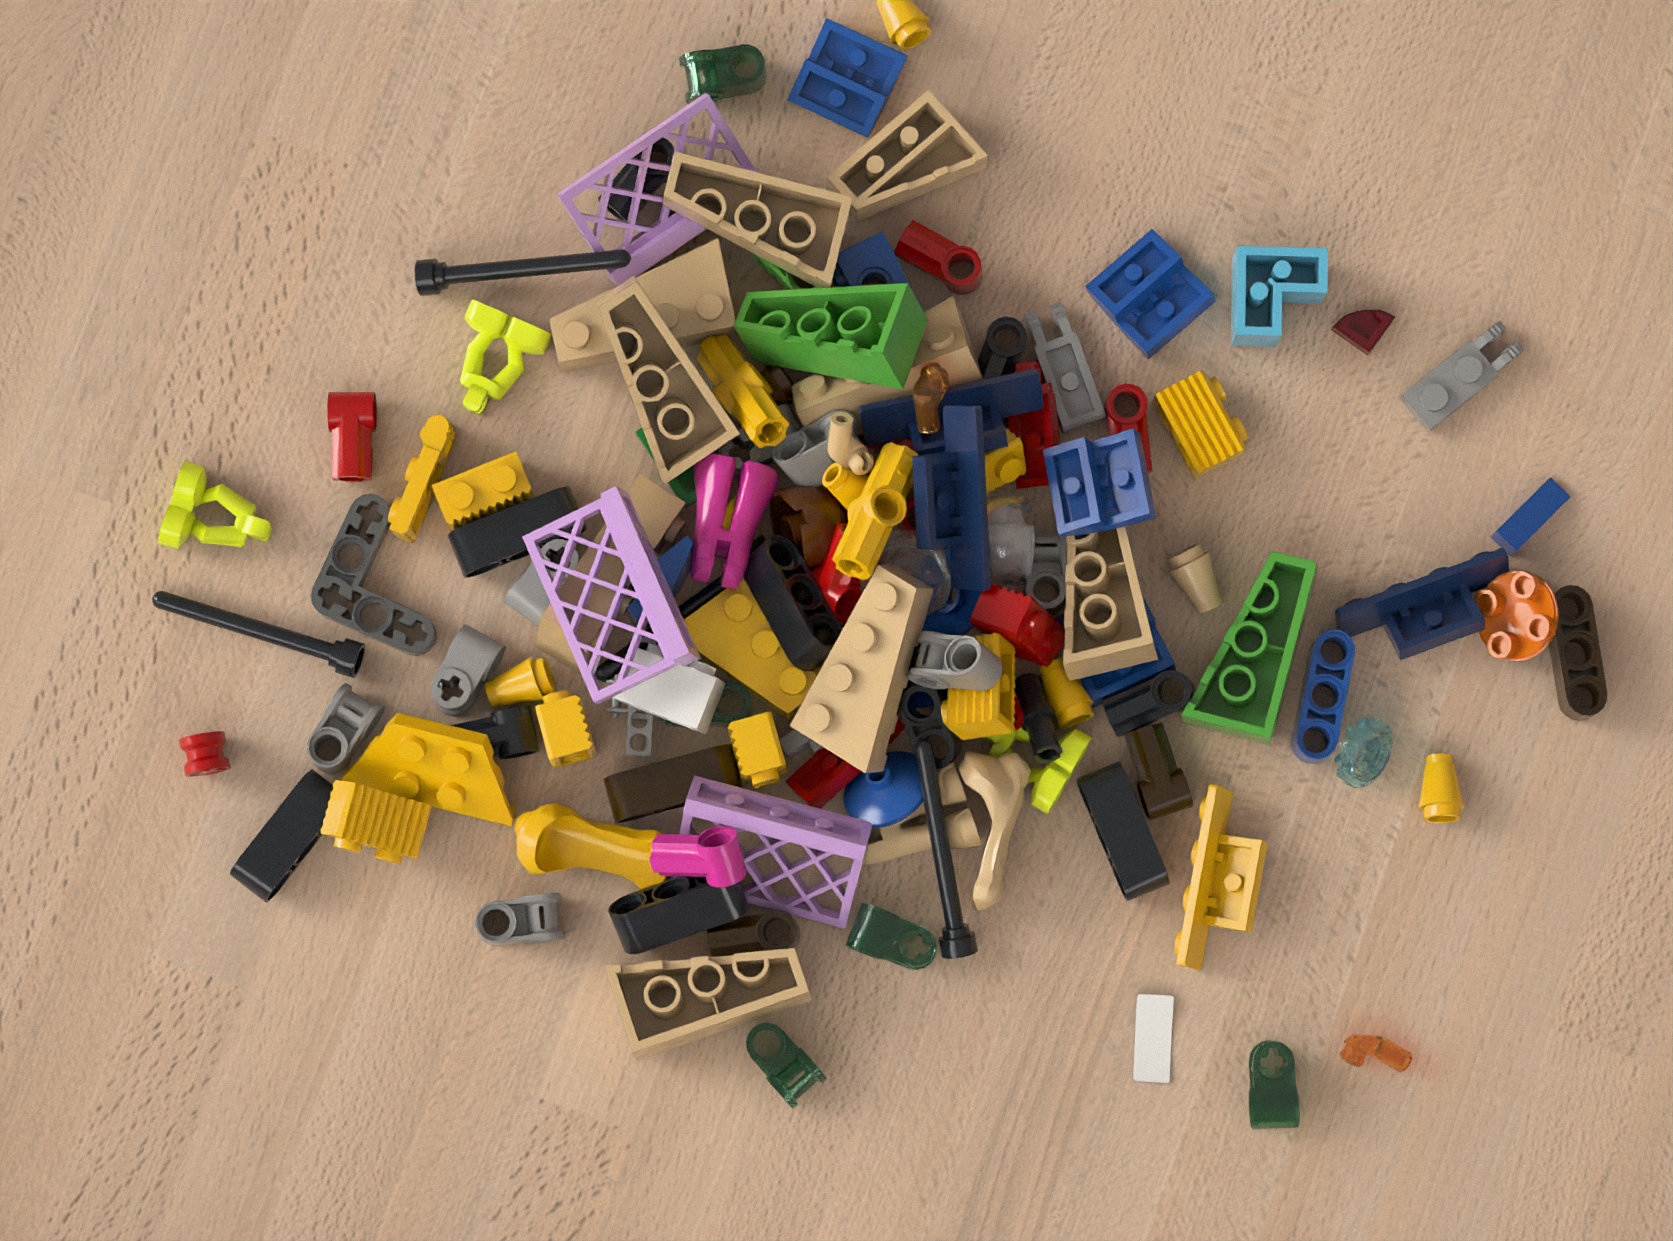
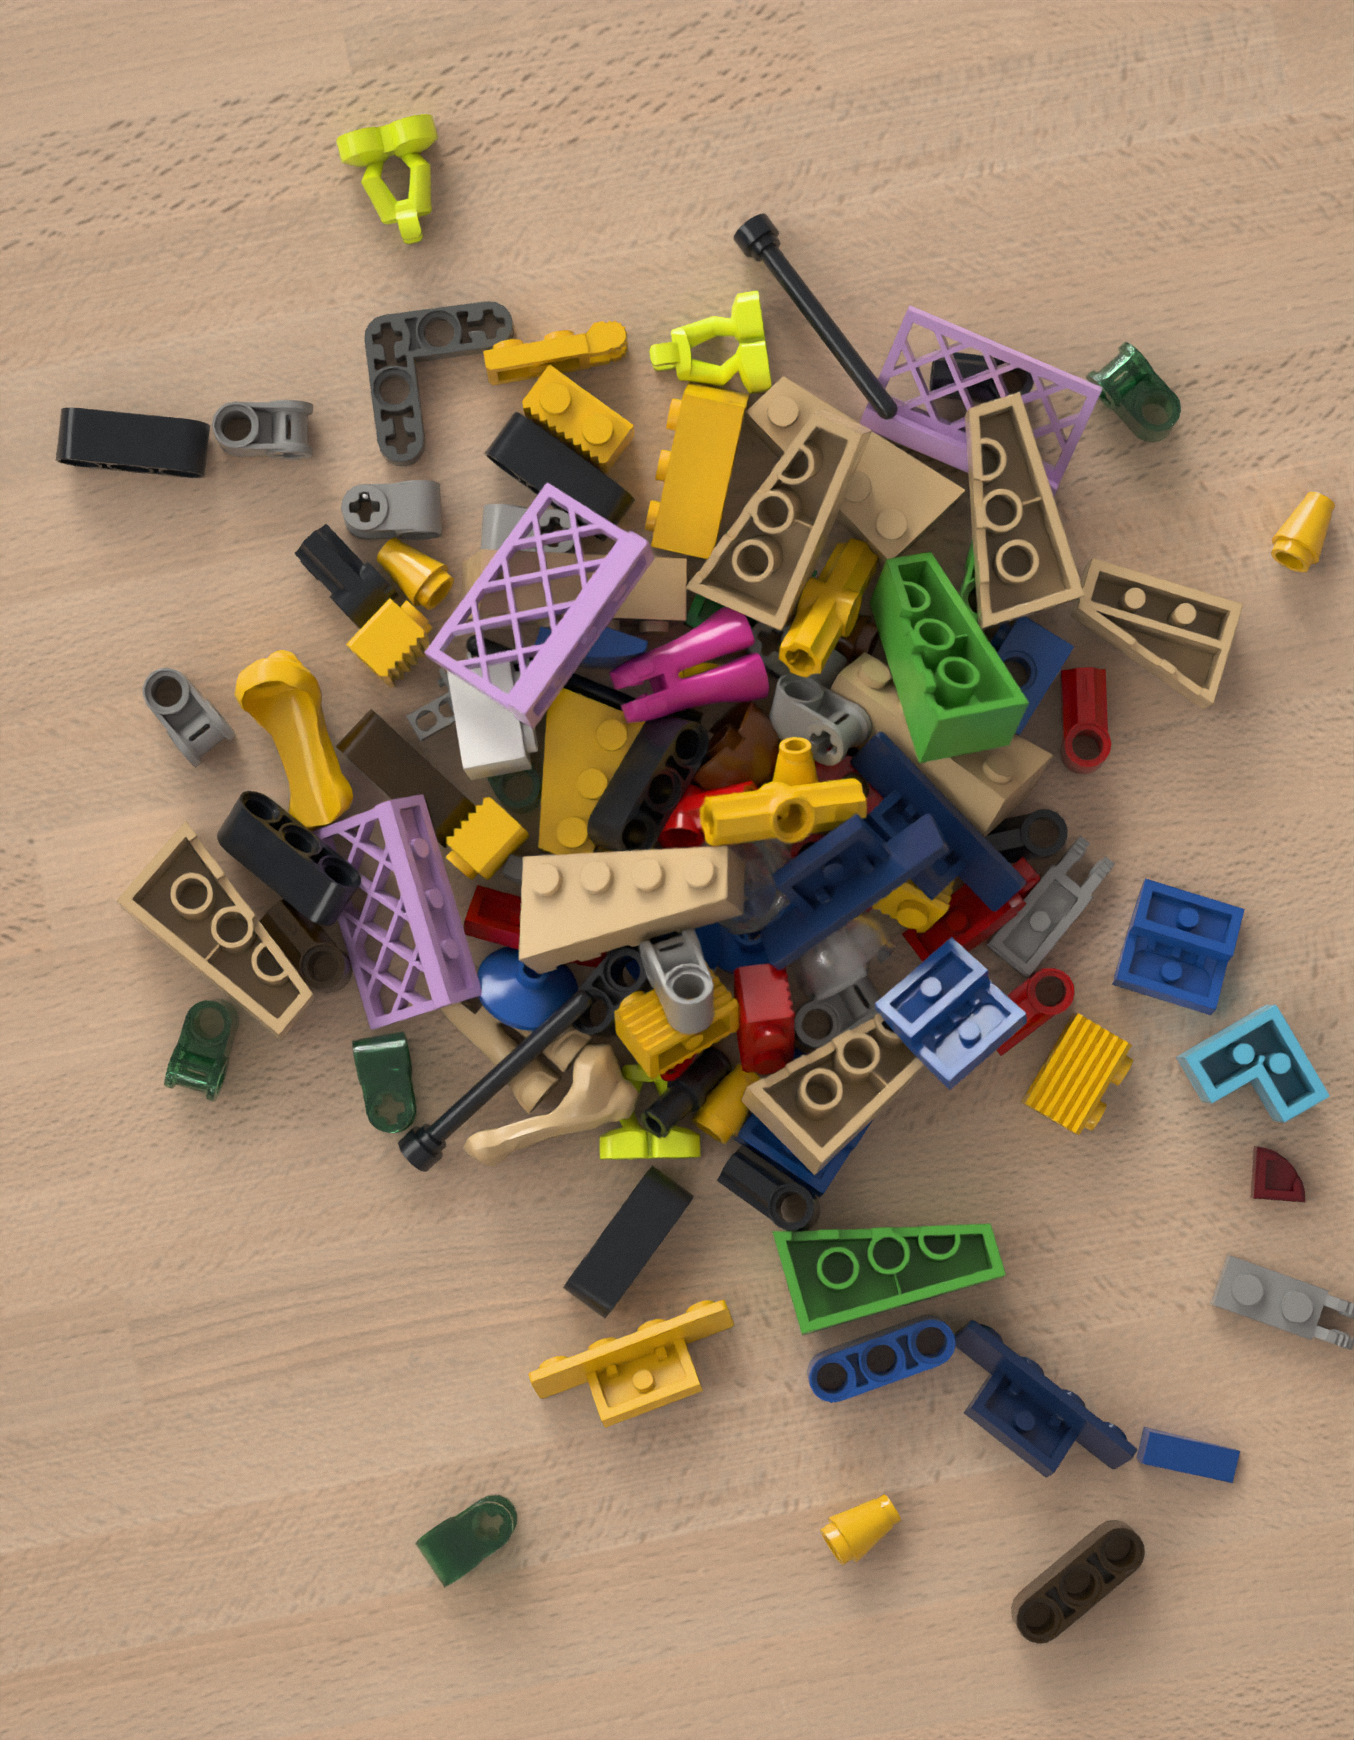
camera: 60 degrees right, 5 degrees up
(204, 753) = (161, 313): red wheel -> none
(343, 656) = (337, 386): black piece -> none
(352, 421) = (567, 252): red piece -> none
(375, 820) = (192, 515): yellow brick -> none
(435, 767) = (280, 541): yellow wing -> none
(577, 425) = (696, 469): none -> yellow wedge
(709, 855) = (353, 857): dark pink piece -> none
(845, 448) = (827, 743): tan arm -> none
(847, 77) = (1209, 519): blue slope -> none
(928, 395) = (932, 791): clear orange arm -> none
(1153, 1038) = (447, 1392): white sticker -> none
(1160, 783) = (699, 1250): dark brown piece -> none
(1196, 577) = (923, 1162): tan cone -> none
(1373, 742) = (864, 1431): clear light blue gear -> none
(1376, 1046) = (569, 1617): clear orange arm -> none
(1518, 615) = (1079, 1503): orange dish -> none

